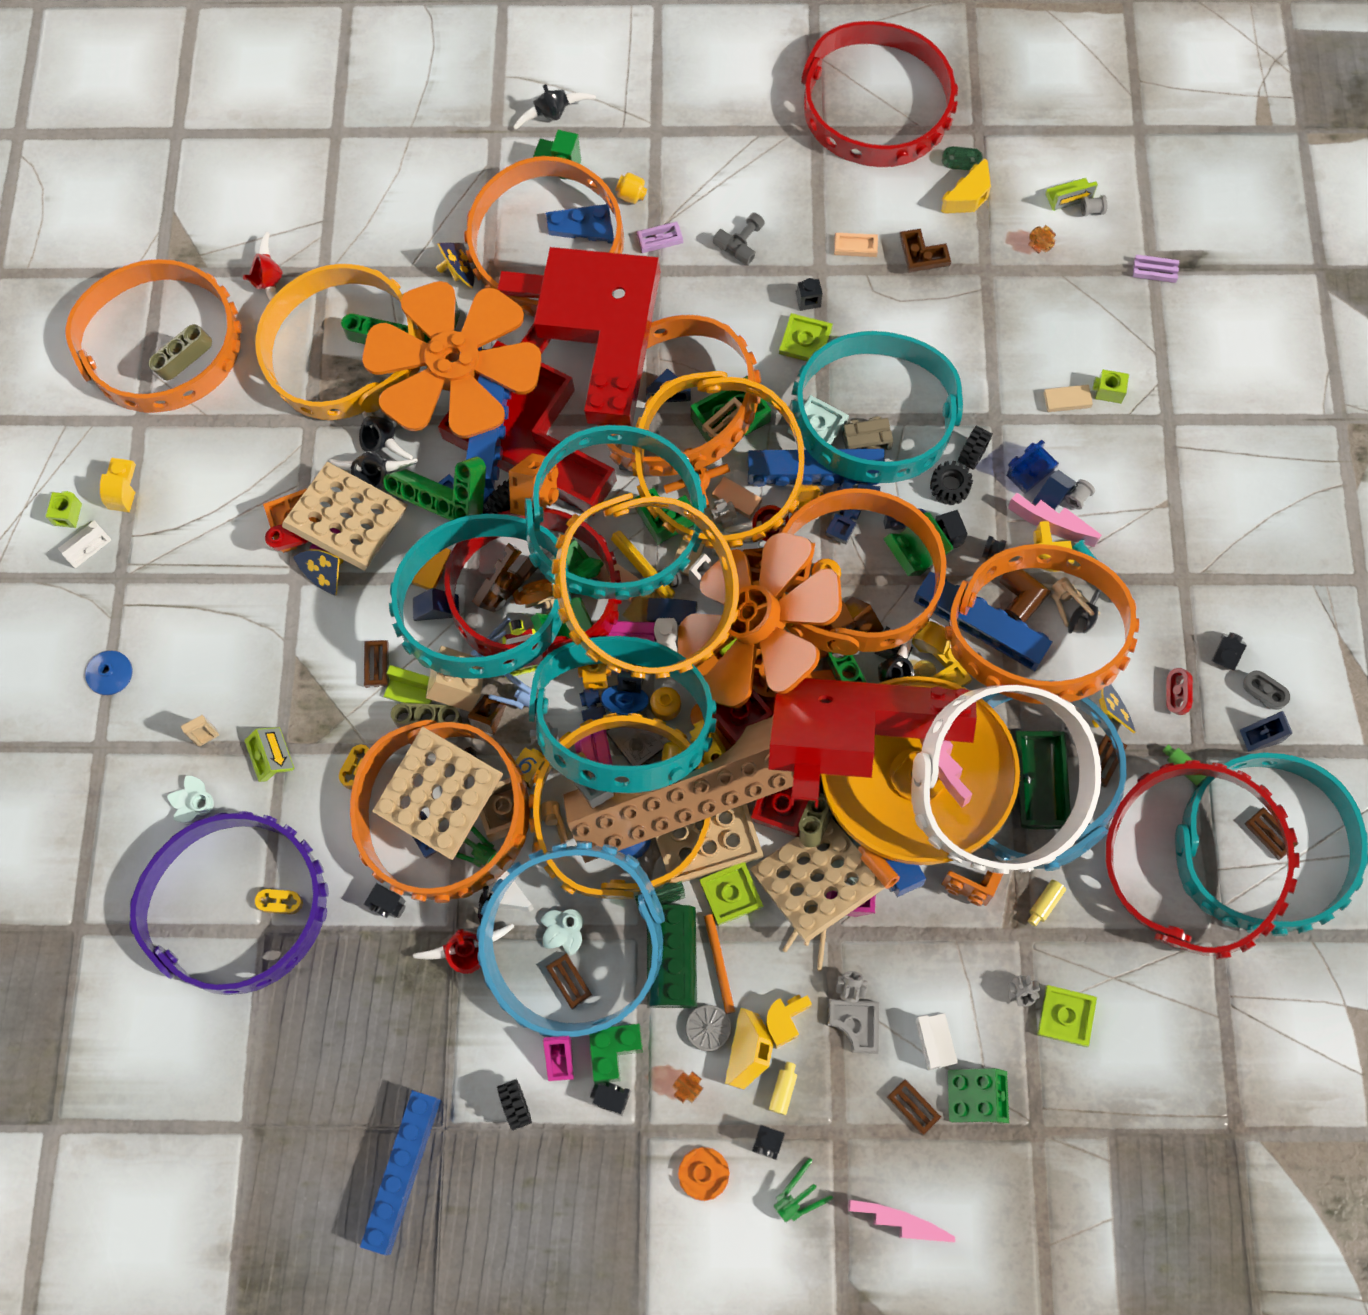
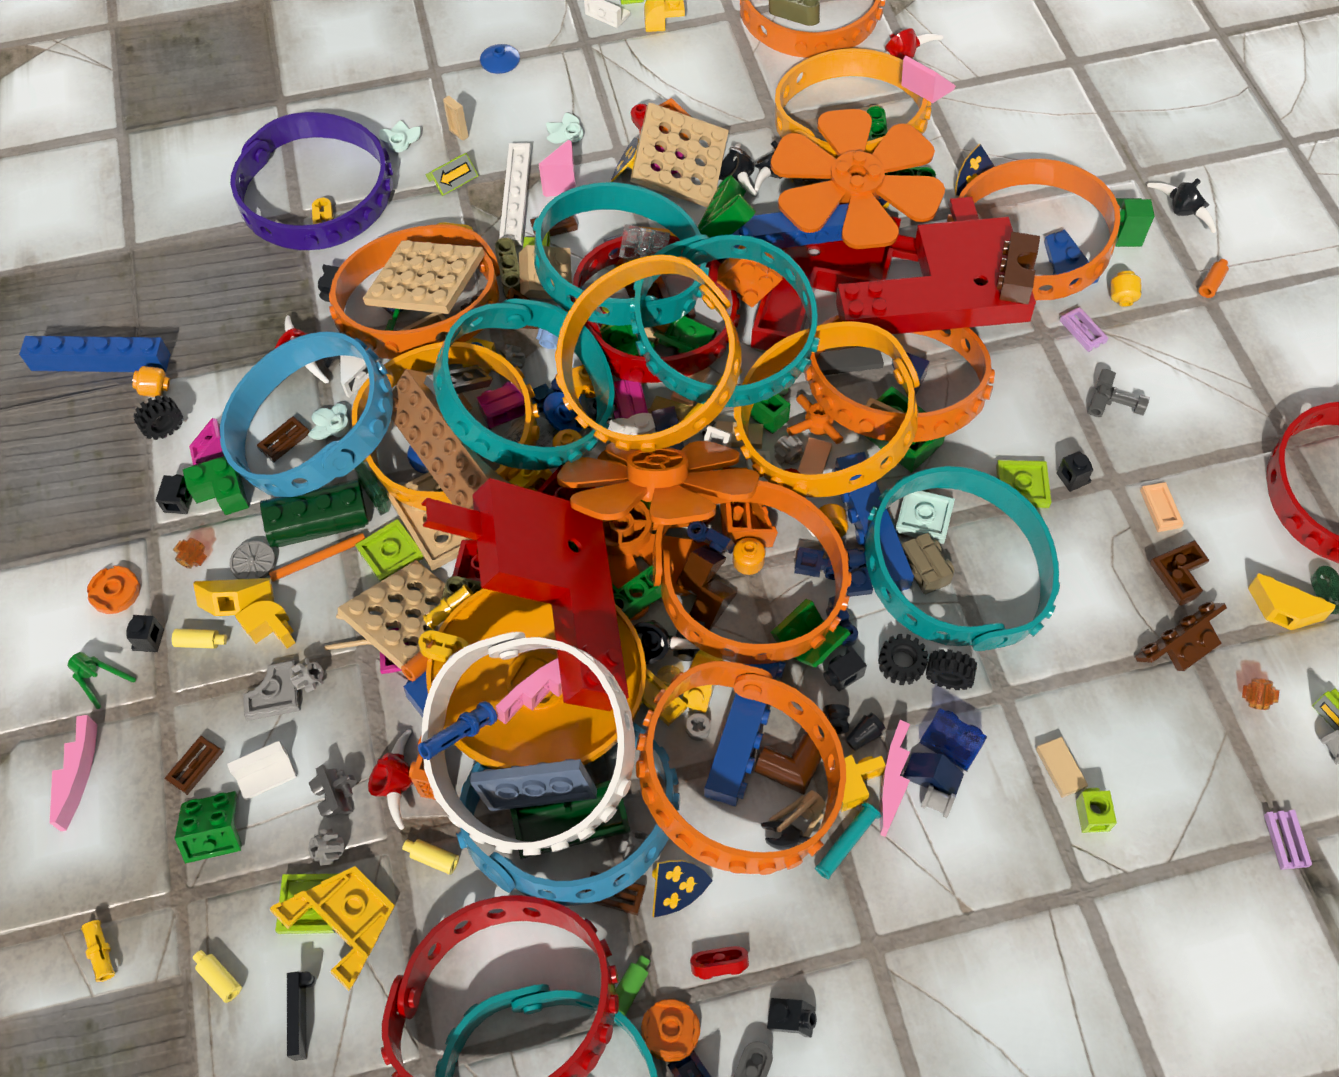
camera: 75 degrees right, 10 degrees down
(245, 627) = (564, 131): none -> light aqua plate
(322, 635) = (558, 171): none -> bright pink slope
(323, 692) = (515, 192): none -> white plate
(351, 262) = (924, 81): none -> bright pink slope
(457, 1112) = (150, 381): none -> light orange head
(470, 571) = (642, 241): none -> clear brick
(636, 265) = (1017, 278): none -> reddish brown arch
(639, 118) = (1214, 278): none -> orange cylinder
(831, 835) = (446, 606): none -> yellow pin
(892, 841) = (444, 645): none -> yellow beam
(960, 981) = (337, 790): none -> flat silver hips
(970, 923) = (392, 778): none -> red helmet
(975, 827) = (466, 725): none -> blue pin
(981, 271) = (1188, 640): none -> reddish brown bracket
(1009, 530) = (865, 731): none -> black cone
(1025, 779) = (534, 785): none -> sand blue plate
(1077, 1208) = (98, 951): none -> yellow pin
(1084, 975) = (351, 909): none -> yellow wing
(1118, 1102) = (217, 976): none -> light yellow cylinder
(1139, 1031) = (296, 1013): none -> black hinge
(1224, 740) = (670, 1030): none -> orange tile

